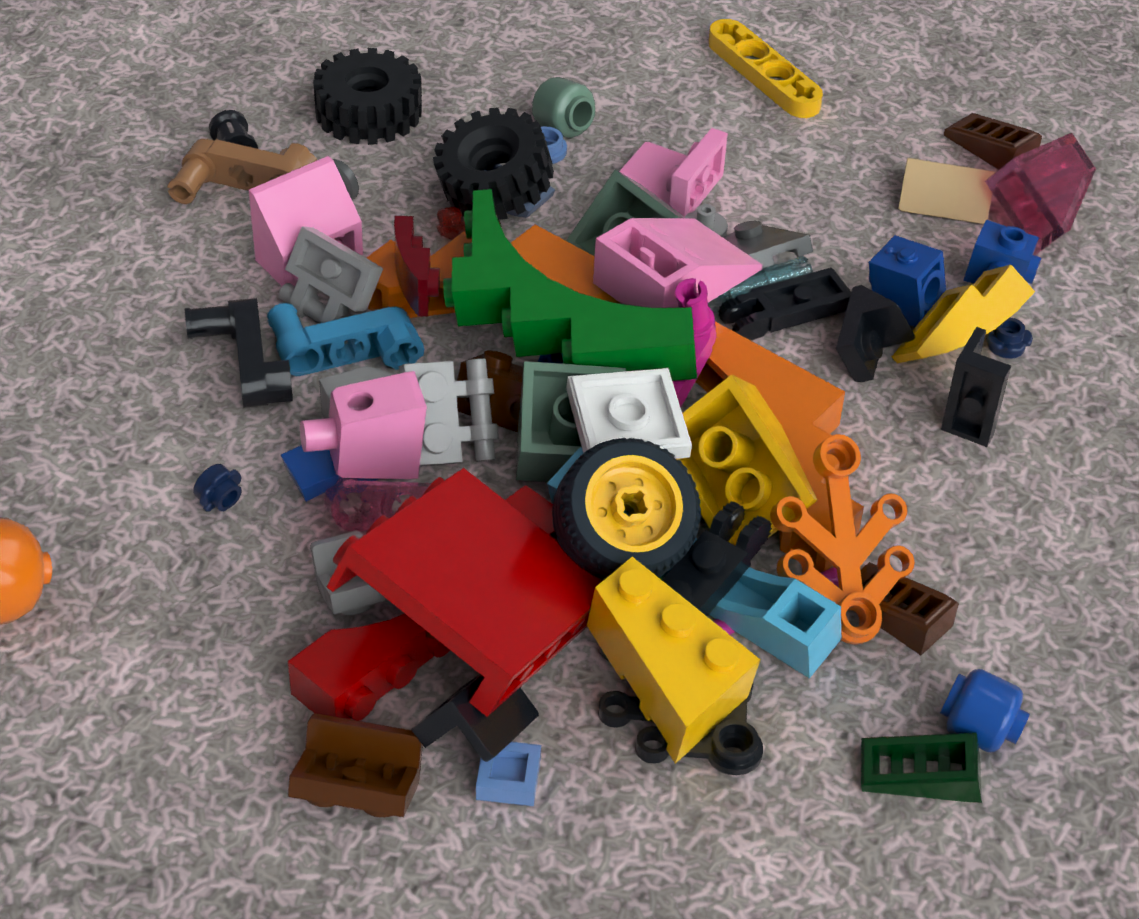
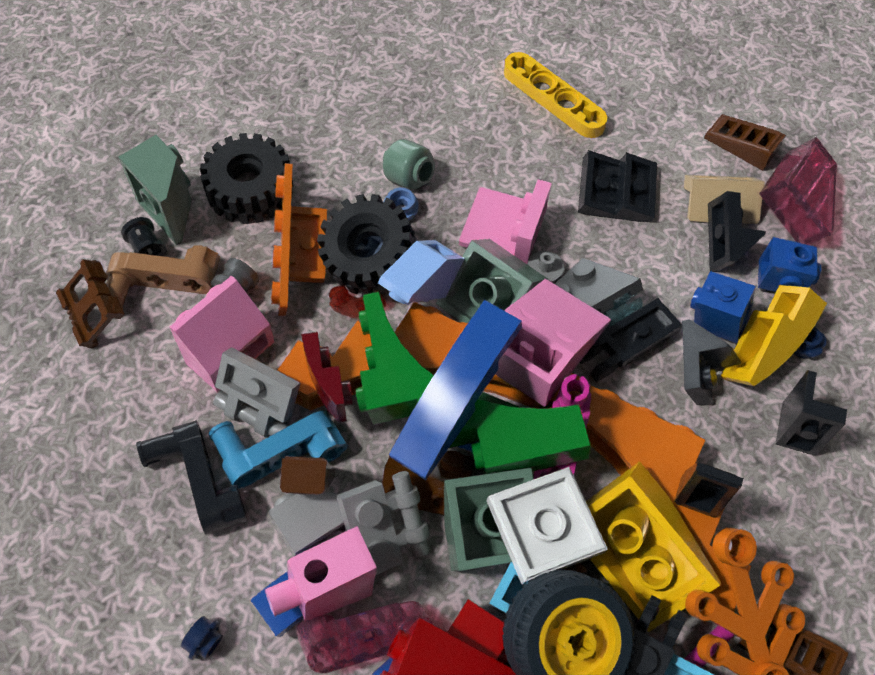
camera: 10 degrees left, 15 degrees up
(170, 171) = (97, 294): none -> reddish brown piece
(263, 82) = (159, 184): none -> sand green slope
(370, 344) = (306, 475): none -> reddish brown slope
(410, 167) = (299, 247): none -> orange bracket
(545, 275) = (455, 389): none -> blue slope
(552, 194) = (422, 273): none -> light blue slope
(818, 166) = (618, 187): none -> black slope
(822, 405) = (707, 489): none -> black slope
(938, 221) = (726, 236): none -> black slope

